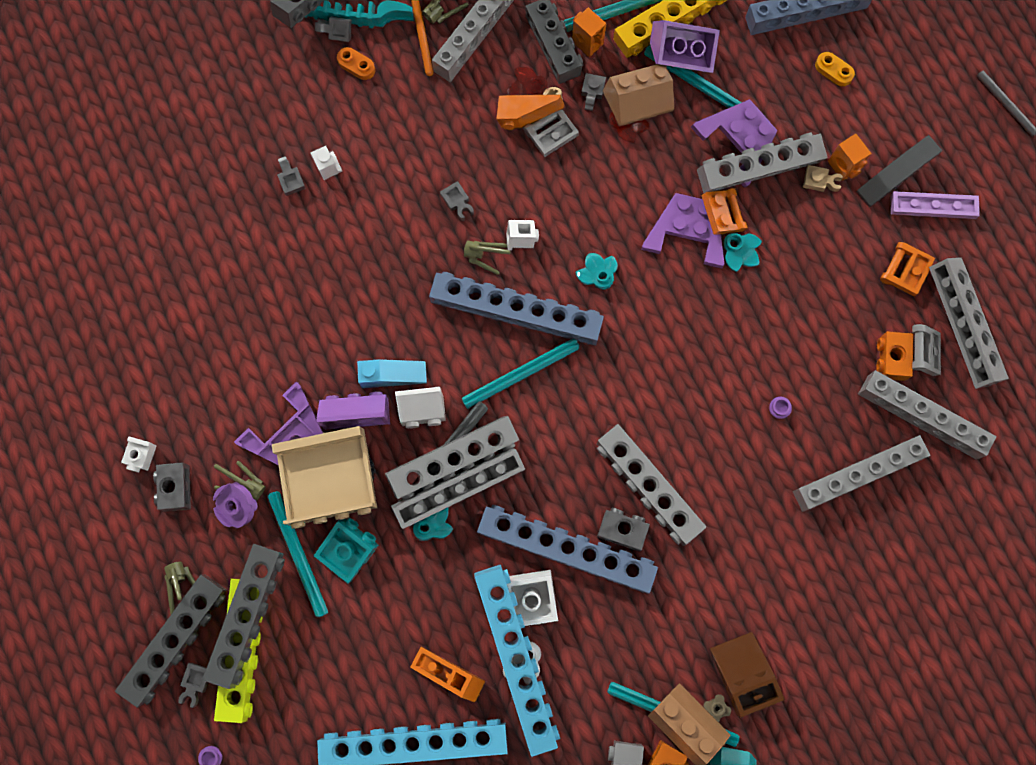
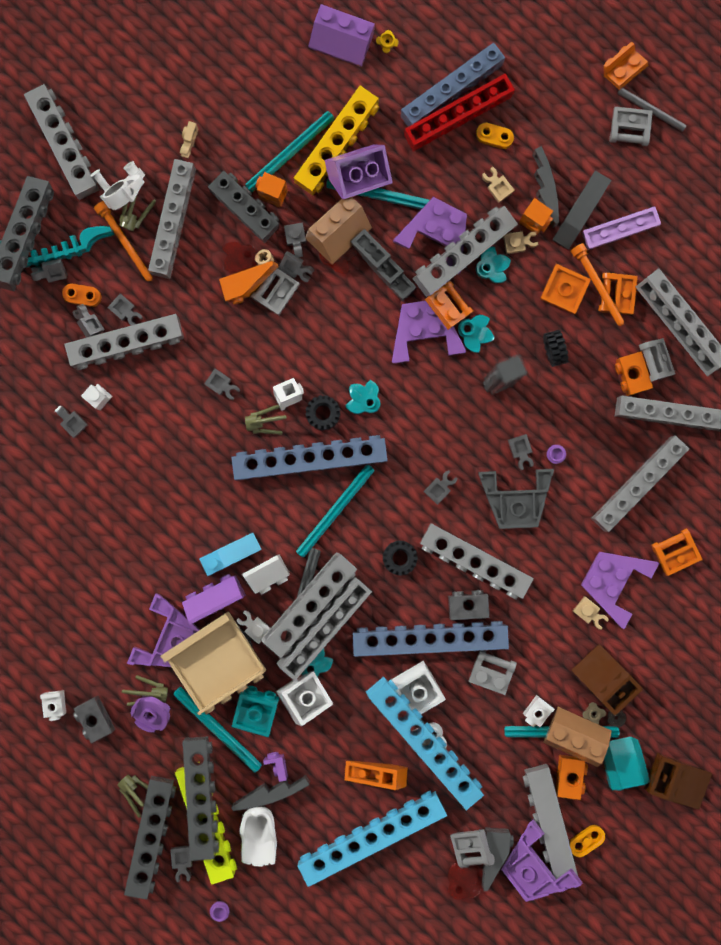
camera: 25 degrees left, 10 degrees up
(288, 690) = (258, 837): none -> white hair
(316, 646) = (263, 795): none -> dark grey slope
(328, 109) = (76, 349): none -> light grey brick
(346, 622) = (280, 768): none -> medium lavender bracket
(350, 92) = (88, 323): none -> flat silver plate
(384, 461) = (256, 628): none -> white plate
(391, 91) = (123, 308): none -> flat silver plate
(405, 556) = (304, 698): none -> white slope
(553, 256) = (323, 401): none -> black tyre
(569, 462) = (400, 569): none -> black tyre
(579, 114) = (293, 266): none -> flat silver plate
(615, 620) = (490, 678): none -> light grey plate
(639, 393) = (438, 489): none -> flat silver plate
(663, 675) = (537, 705): none -> white brick
(671, 148) = (383, 265): none -> dark grey slope
(715, 445) = (518, 507): none -> dark grey wing
(741, 730) = (619, 722): none -> clear smoke plate
(744, 385) = (520, 448): none -> flat silver plate
(753, 591) = (589, 611): none -> tan plate
(759, 290) = (504, 375): none -> dark grey brick
(786, 192) = (496, 265): none -> teal plate
(789, 563) = (607, 579): none -> medium lavender wing
(807, 31) = (459, 112): none -> red brick
(820, 118) = (499, 187): none -> tan plate
(821, 295) = (555, 348): none -> black tyre
(852, 242) = (565, 289): none -> orange plate
(871, 131) = (544, 177): none -> dark grey slope
(879, 572) = (679, 558): none -> orange plate
(882, 213) = (580, 253): none -> orange piece
(983, 105) = (633, 120): none -> light grey plate
(993, 50) = (624, 66): none -> orange bracket

